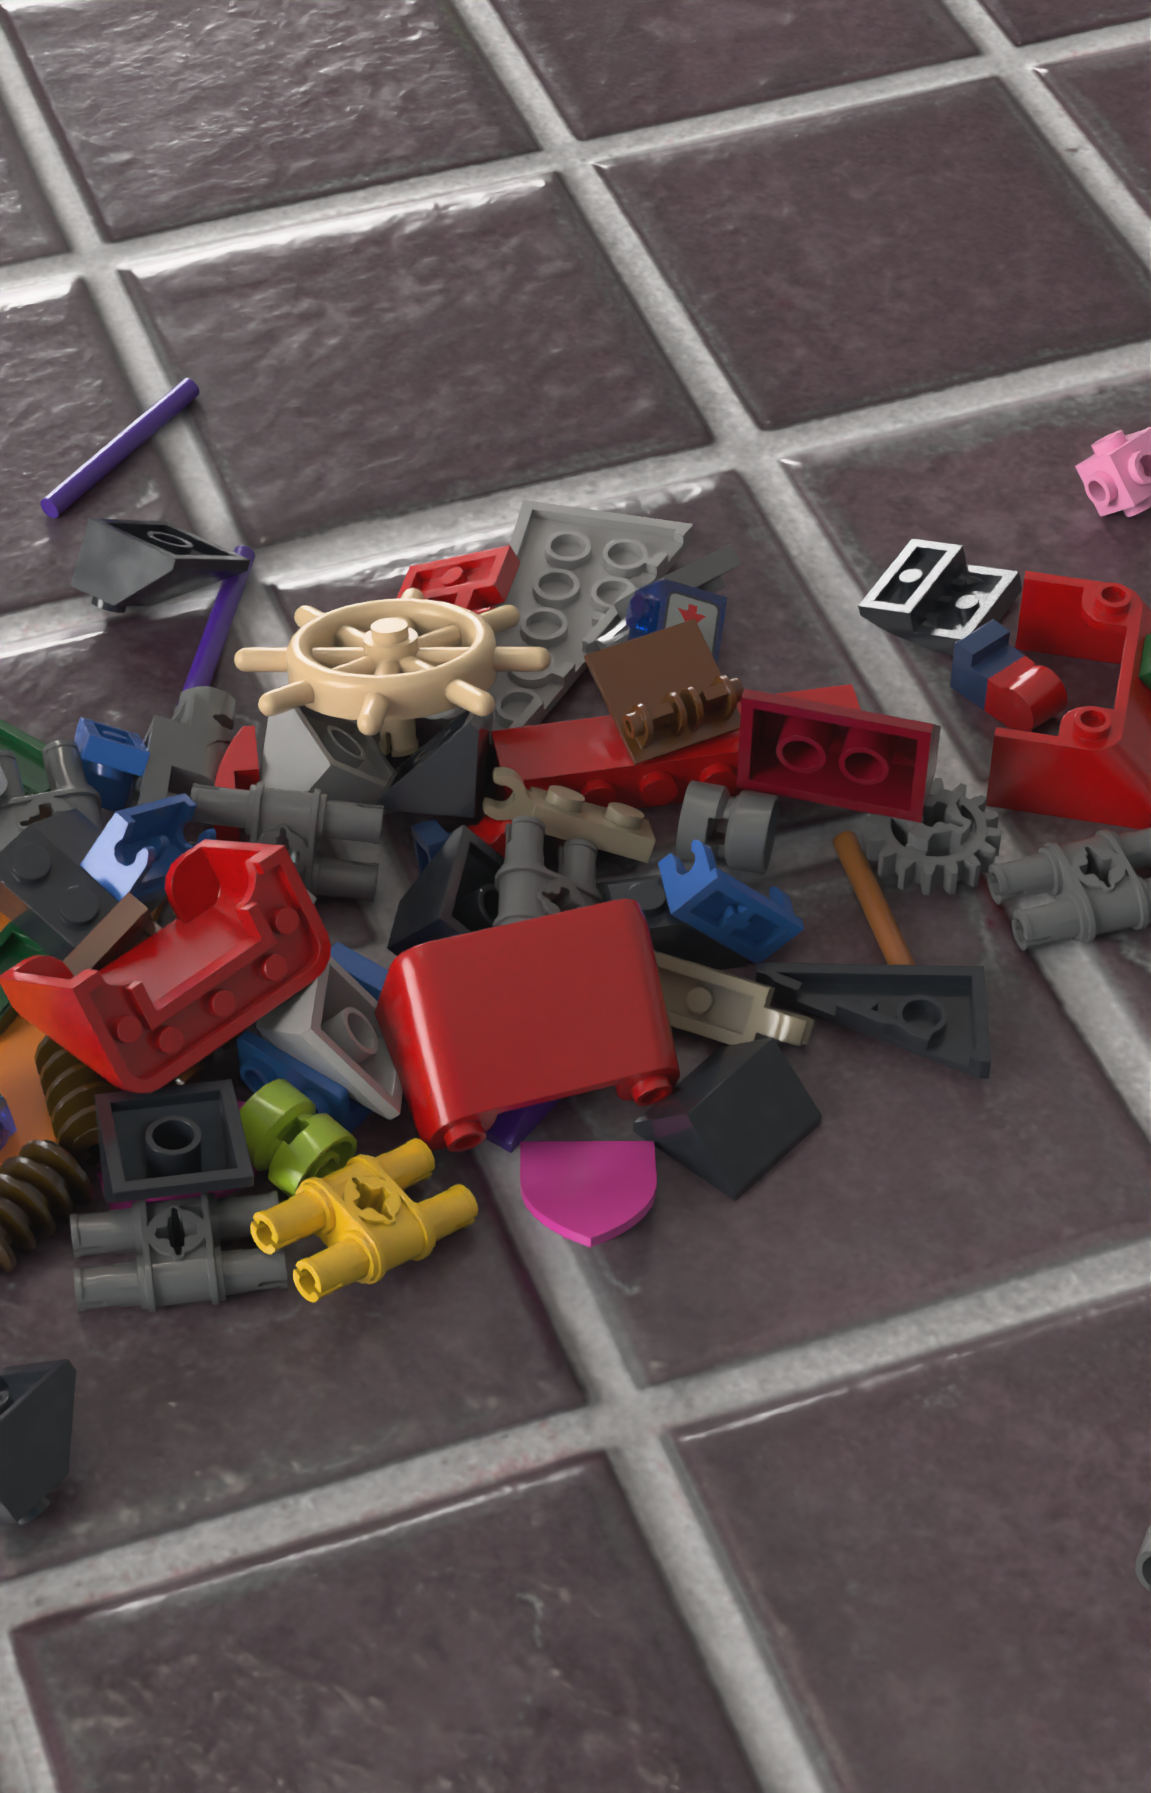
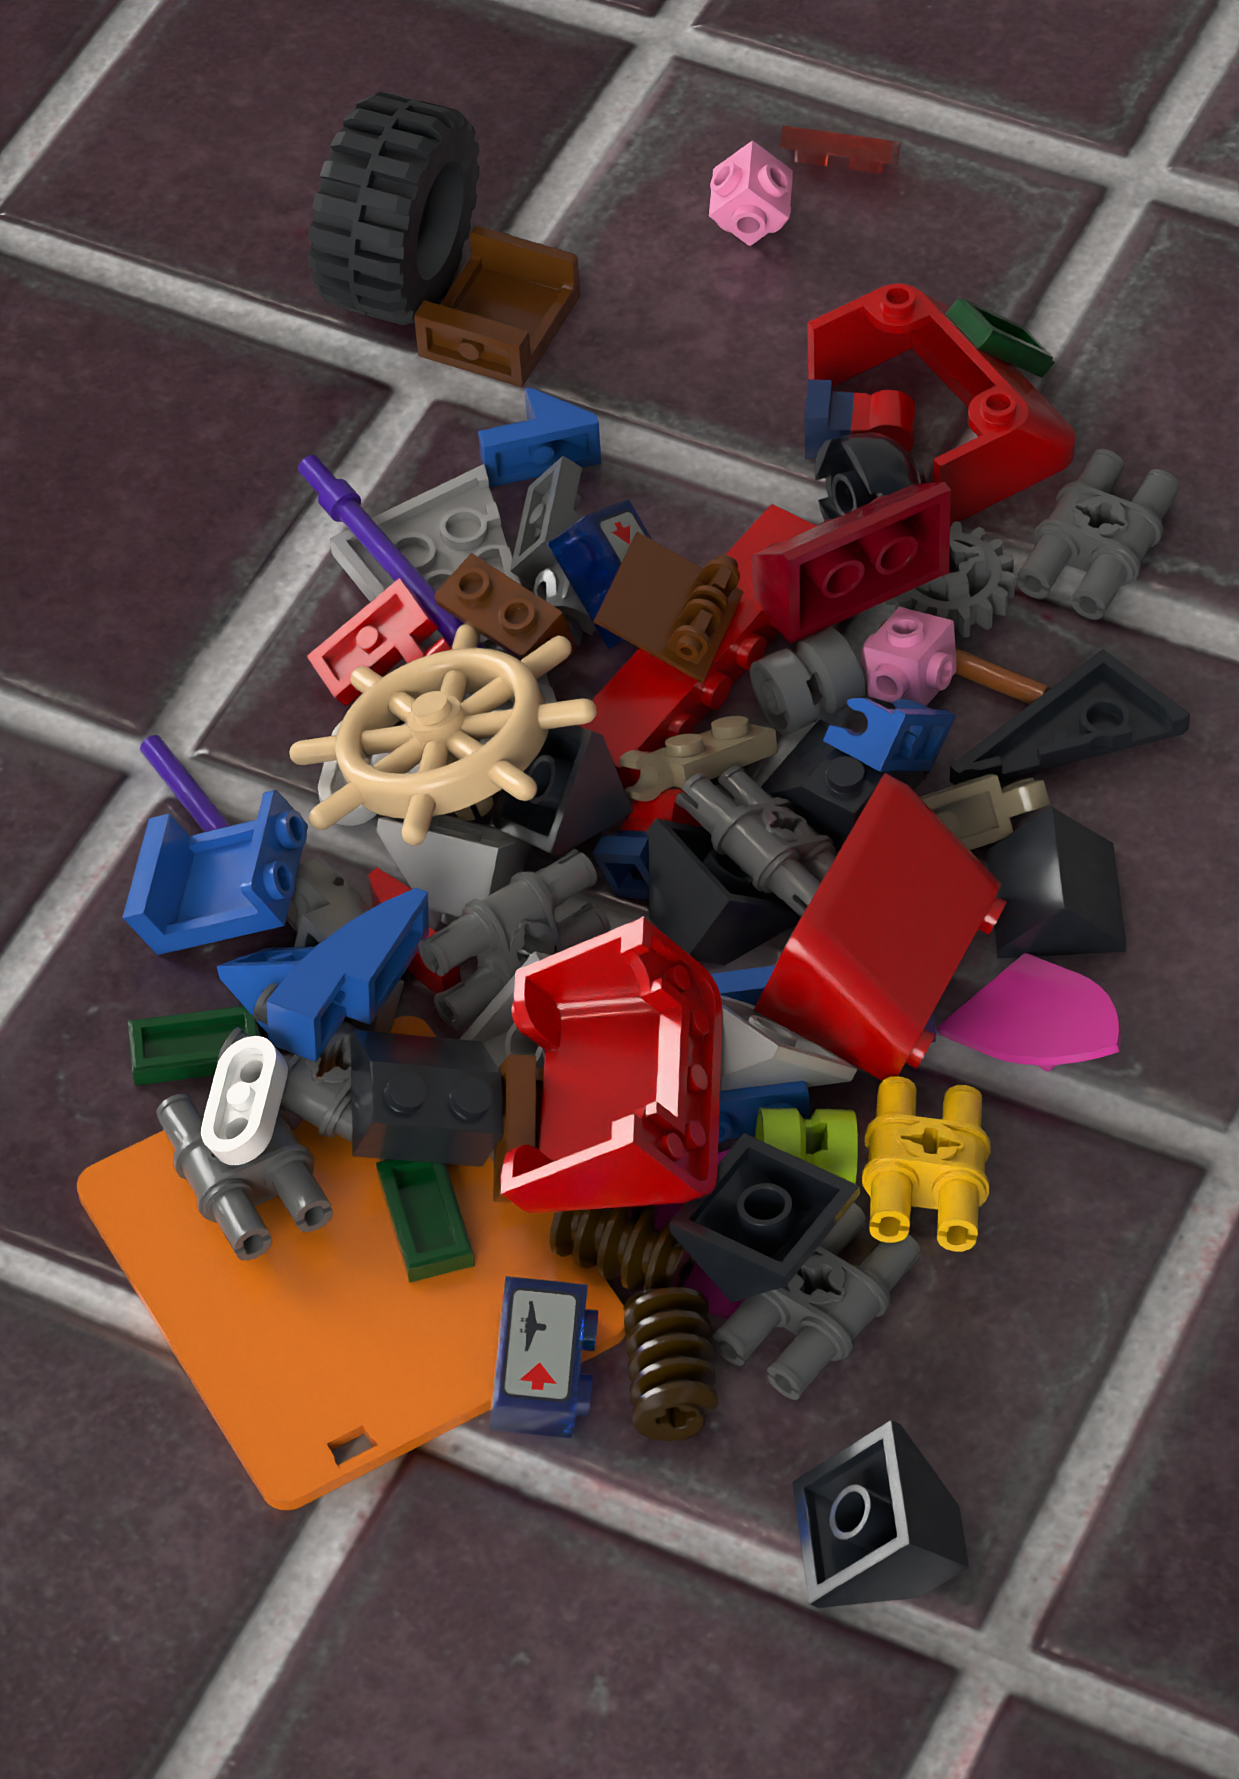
camera: 40 degrees left, 5 degrees up
(112, 764) = (347, 975): none -> blue slope
(141, 847) = (457, 1022): blue hinge -> none
(144, 656) = (217, 880): none -> blue panel
(147, 563) = (105, 804): black slope -> none
(550, 616) = (501, 609): none -> reddish brown bracket
(553, 482) = (343, 505): none -> dark purple bar
(763, 540) = (534, 445): none -> blue slope
(786, 262) = (393, 207): none -> black tyre
(821, 865) = (910, 657): none -> bright pink brick
(849, 437) = (500, 307): none -> reddish brown panel
(938, 597) = (723, 393): black slope -> none
(964, 713) = (861, 470): none -> black cylinder

